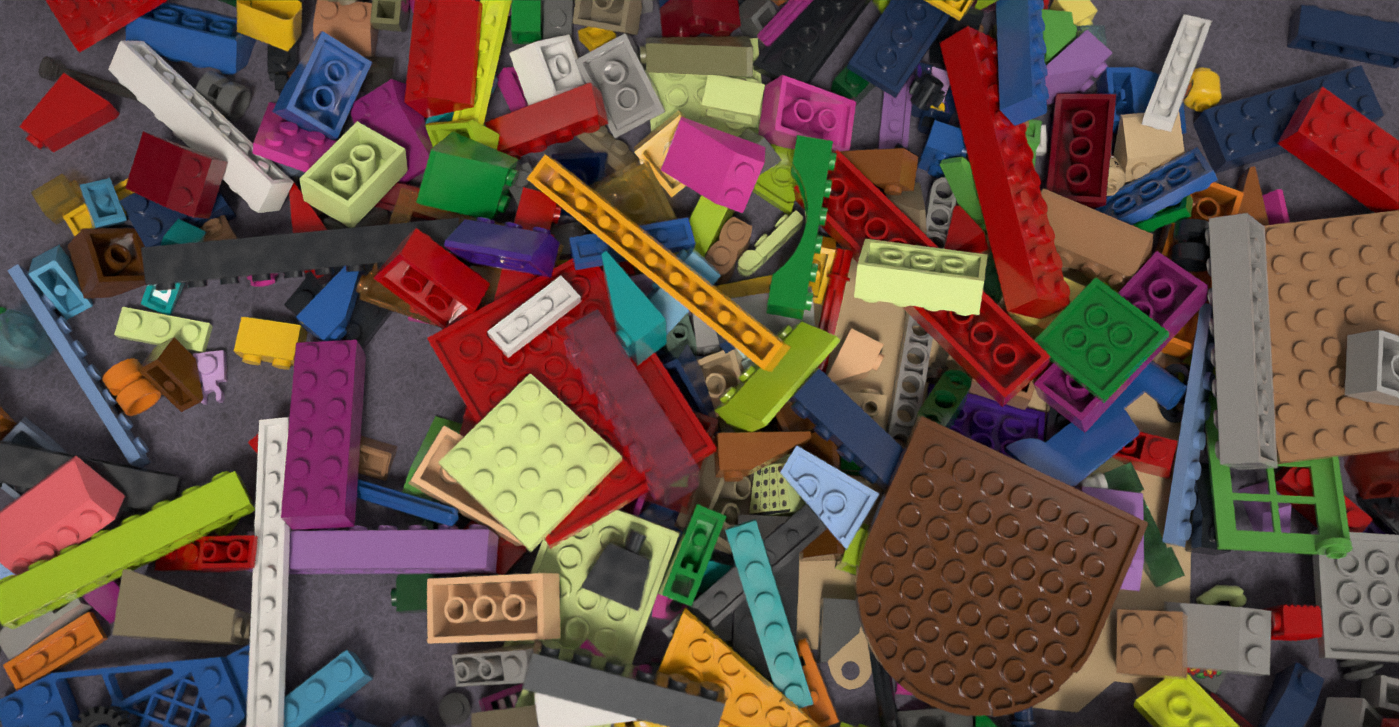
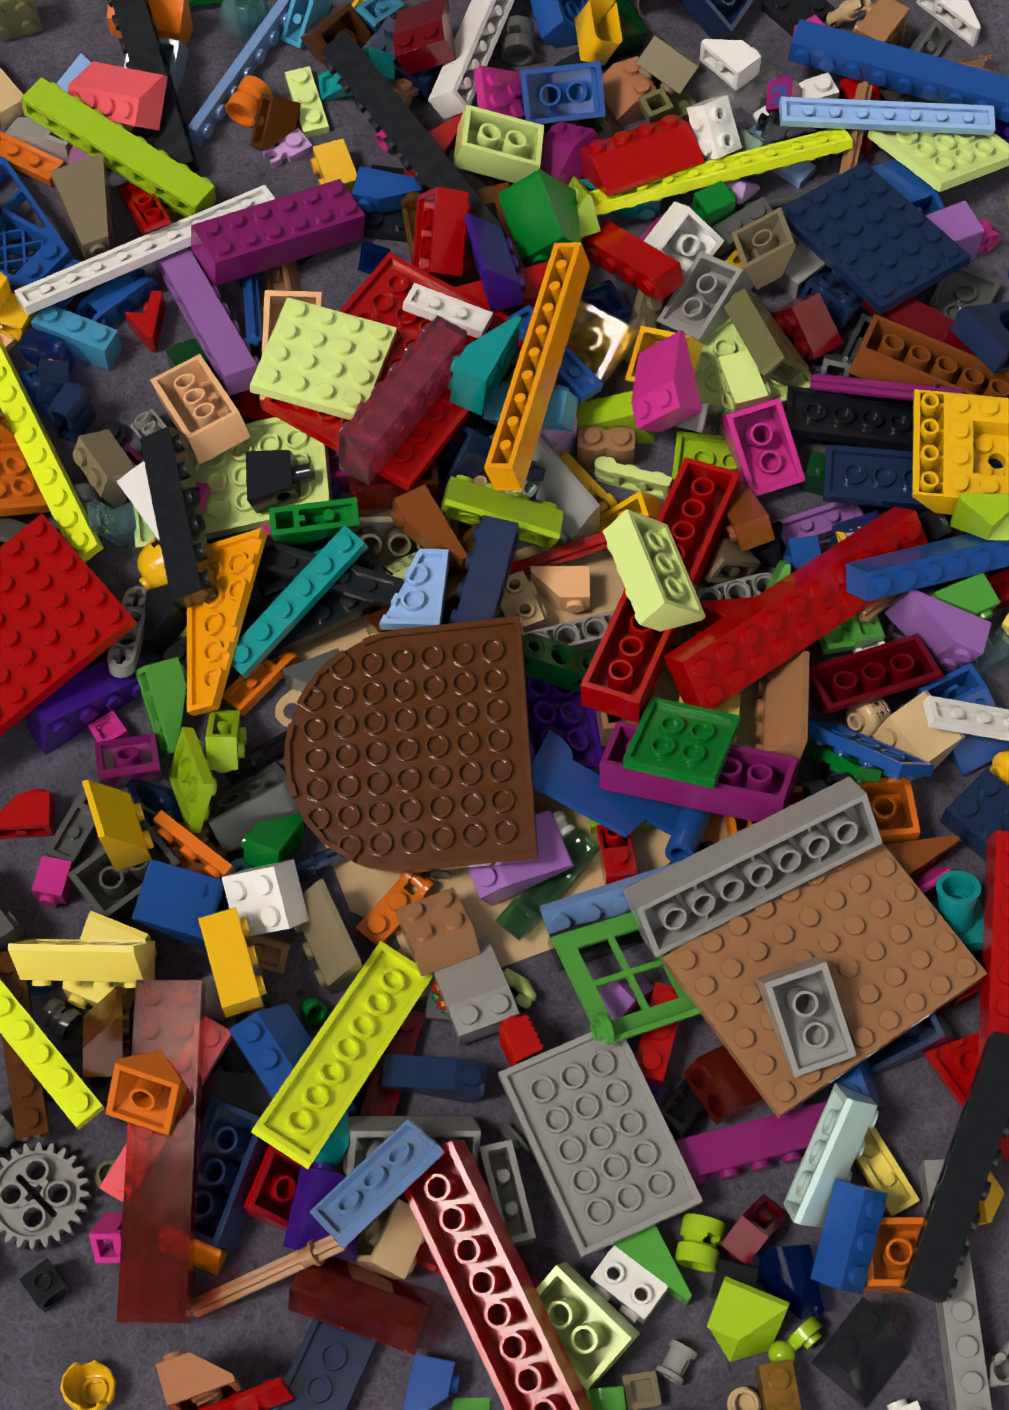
camera: 70 degrees right, 10 degrees down
(301, 635) = (117, 297): none -> blue piece
(349, 616) = (148, 325): none -> red slope
(398, 355) = (371, 256): none -> clear blue tile
(790, 283) = (590, 483): green arch -> none
(926, 92) = (843, 521): black gear -> none
(1104, 682) = (382, 920): none -> orange plate
(1320, 197) = (960, 907): none -> teal plant

